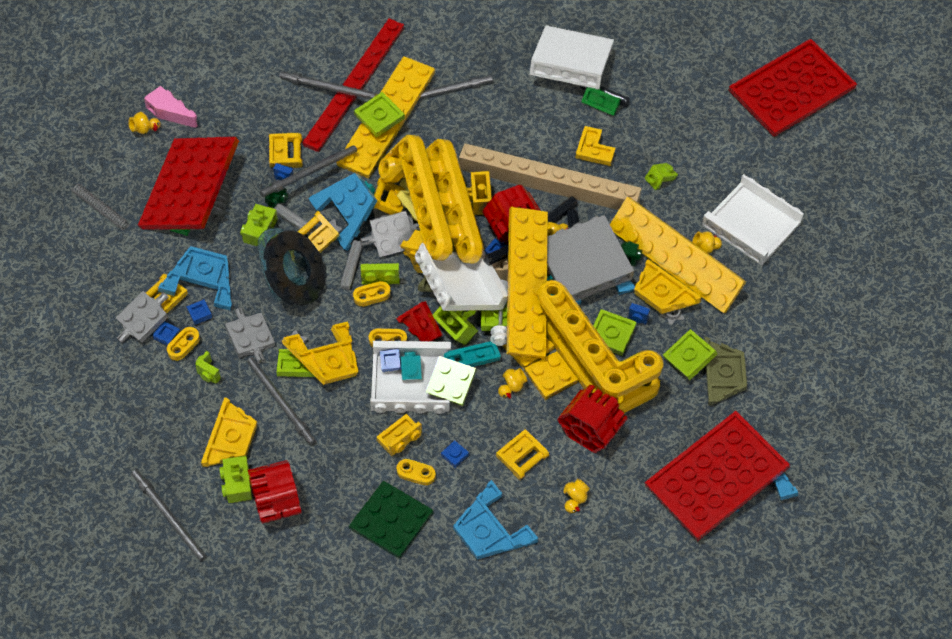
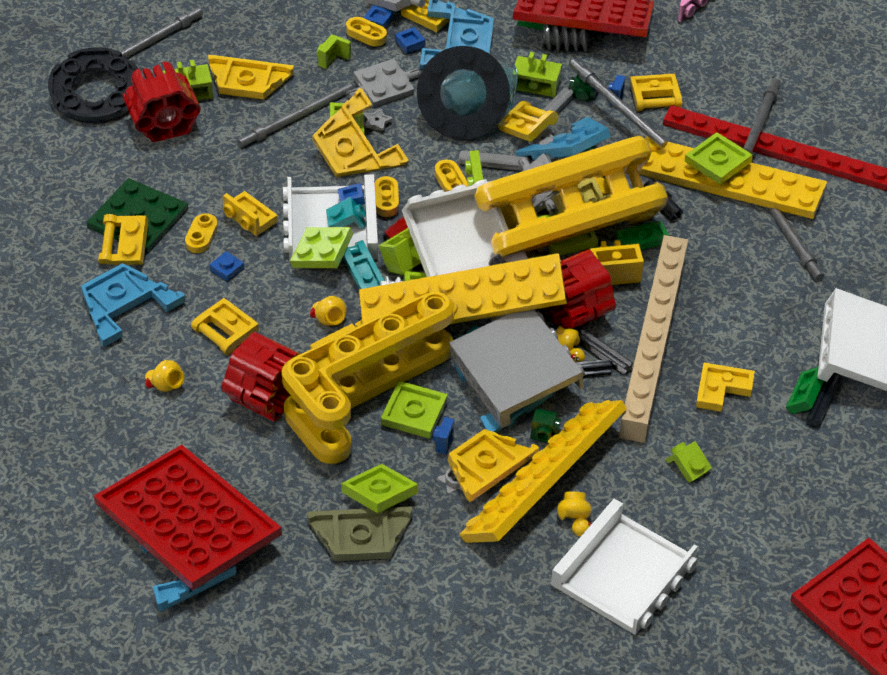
camera: 85 degrees right, 10 degrees down
(236, 526) = (86, 60): none -> black plate
(430, 519) = (131, 240): none -> yellow plate

